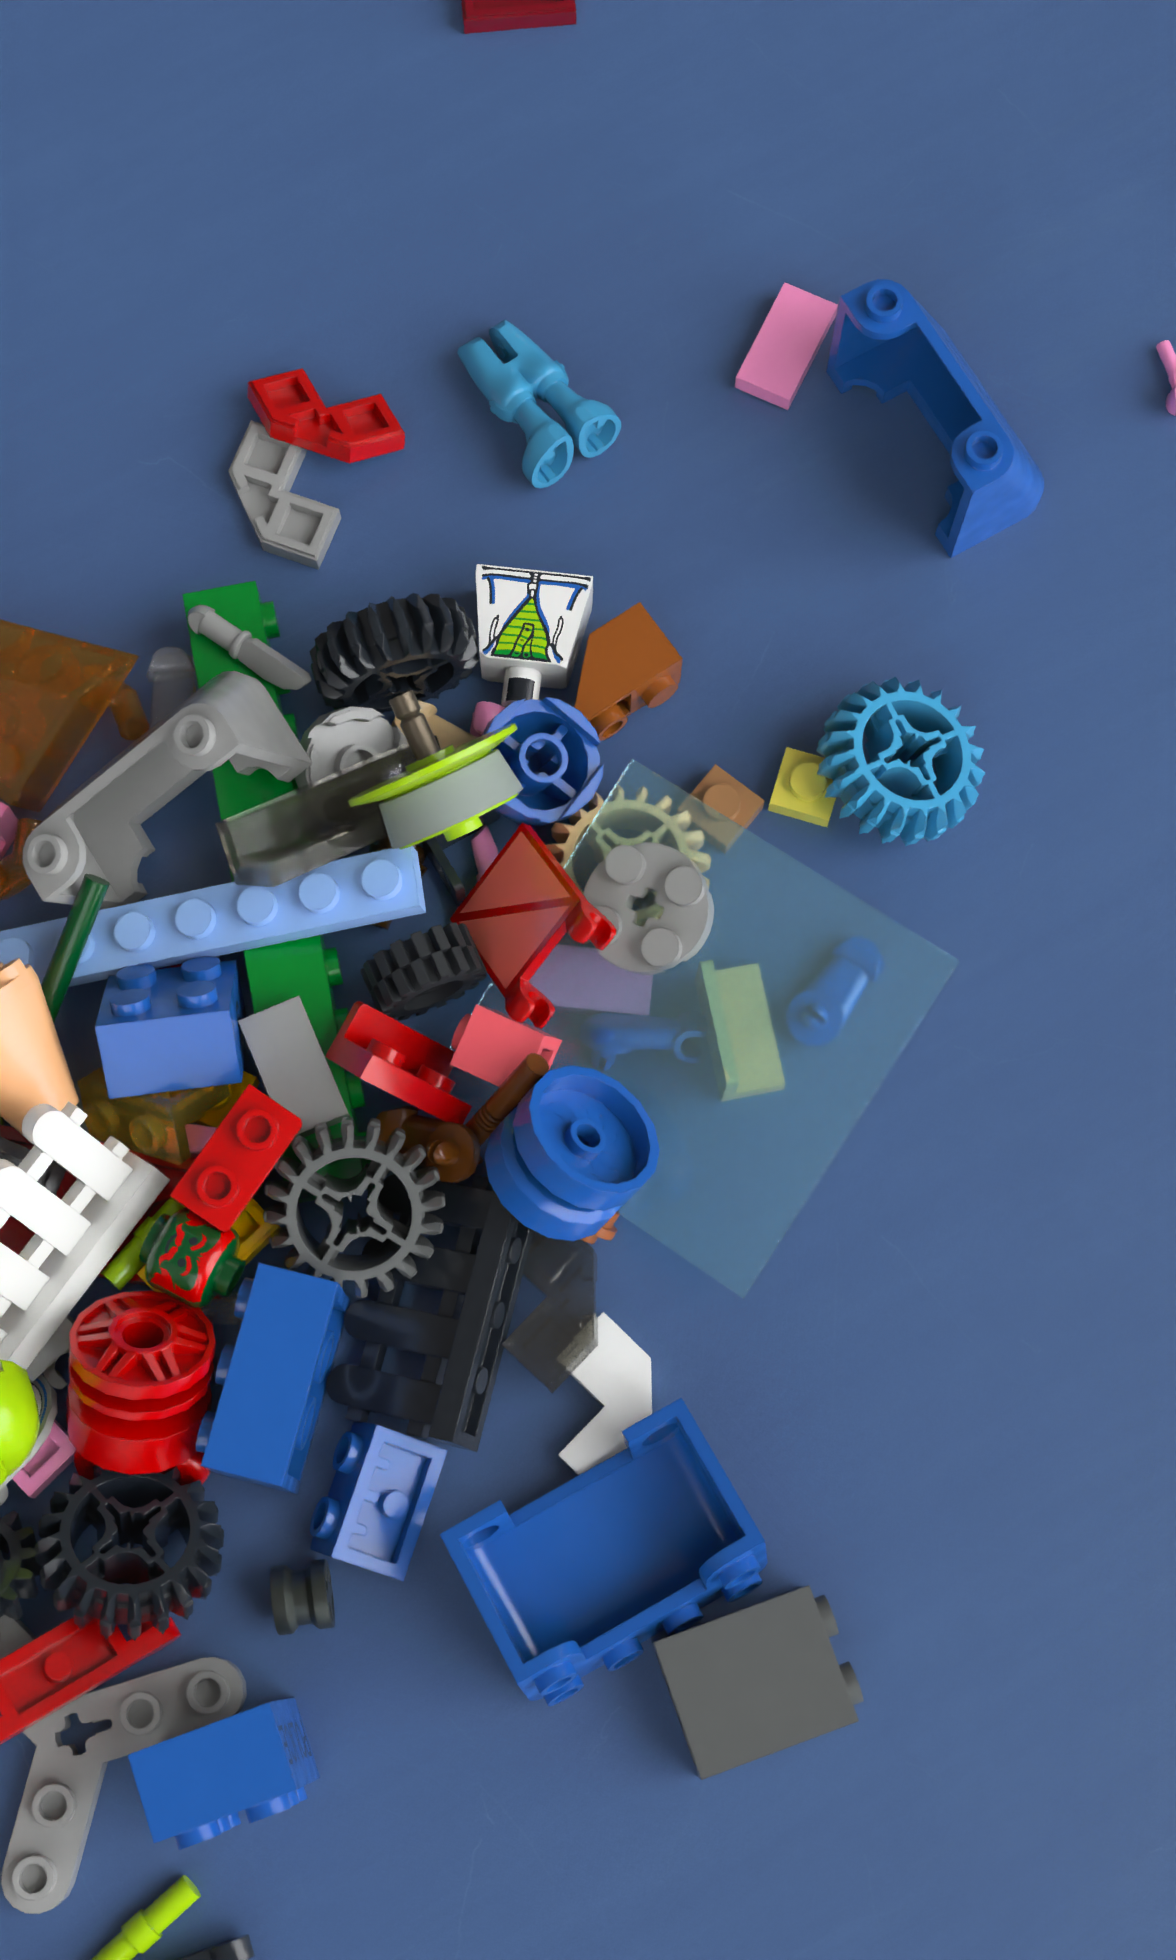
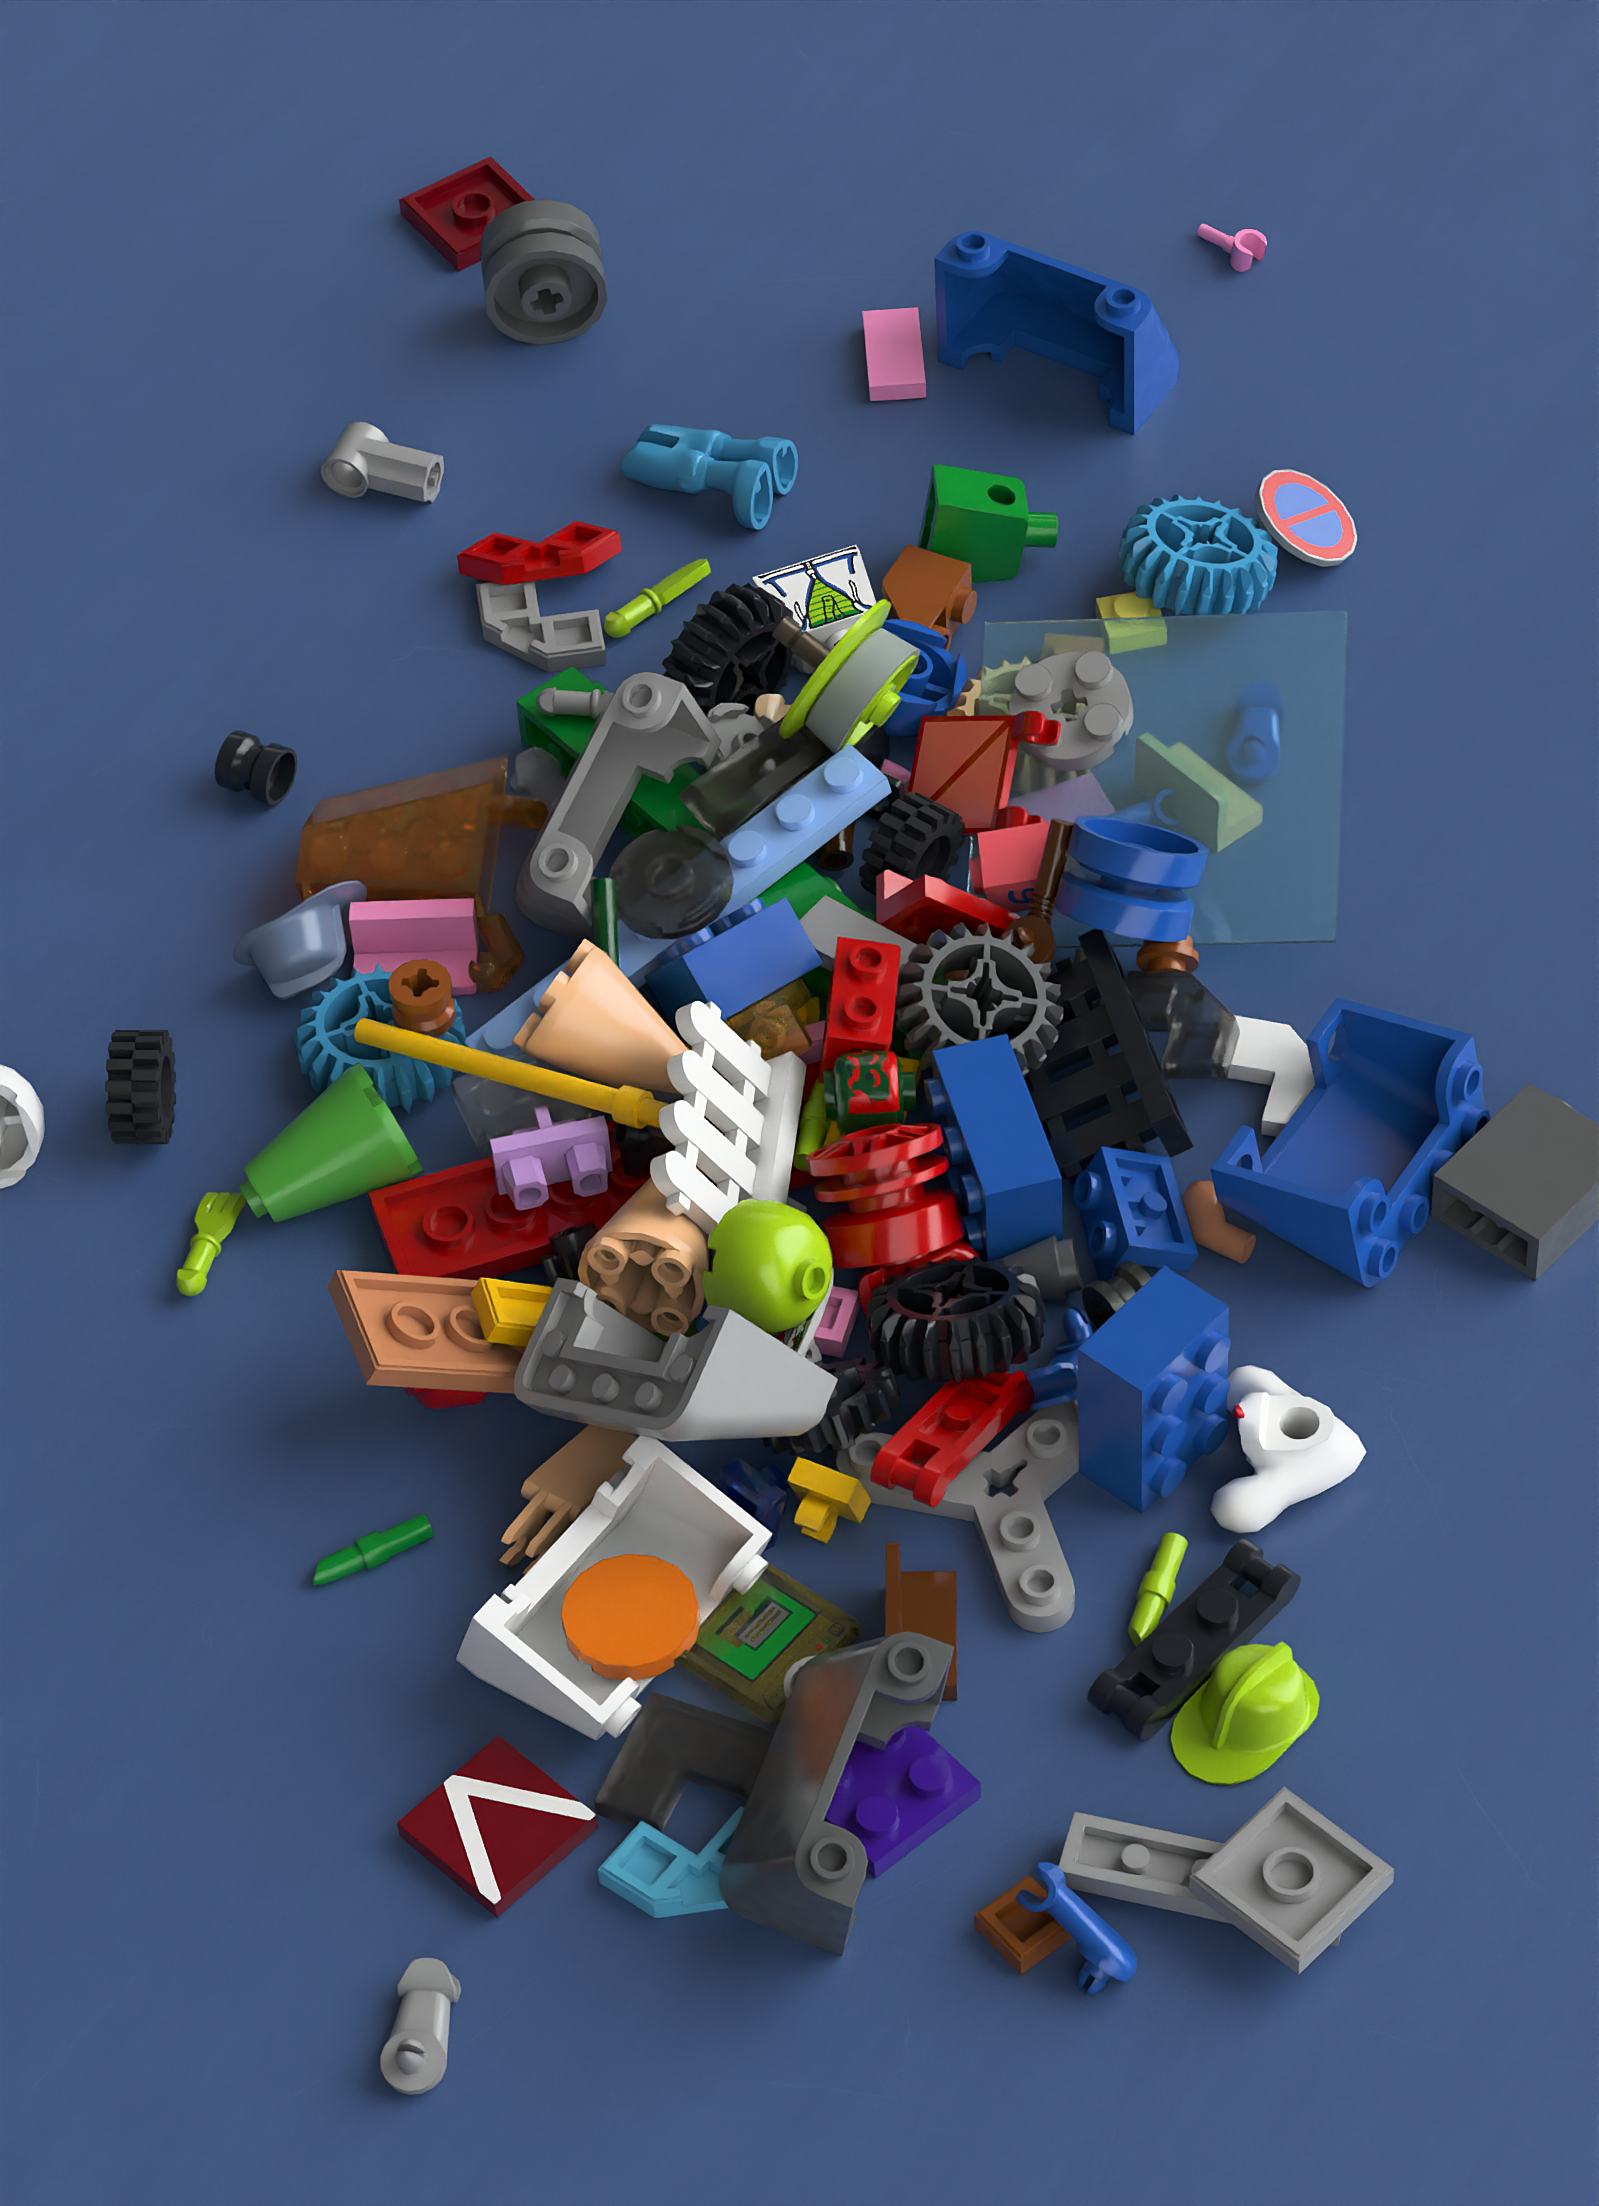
camera: 25 degrees left, 25 degrees down
(166, 907) = (672, 882): none -> clear smoke tile
(231, 1632) = (1059, 1379): none -> blue piece
(240, 226) = (367, 460): none -> light grey piece
(254, 1513) = (1052, 1265): none -> dark grey cone
(339, 1857) = (1288, 1442): none -> white head
(403, 520) = (651, 600): none -> lime piece
(440, 1517) = (1210, 1226): none -> nougat arm
(508, 92) = (542, 272): none -> dark grey wheel
(725, 612) = (982, 521): none -> green torso
(1034, 762) = (1305, 517): none -> piece

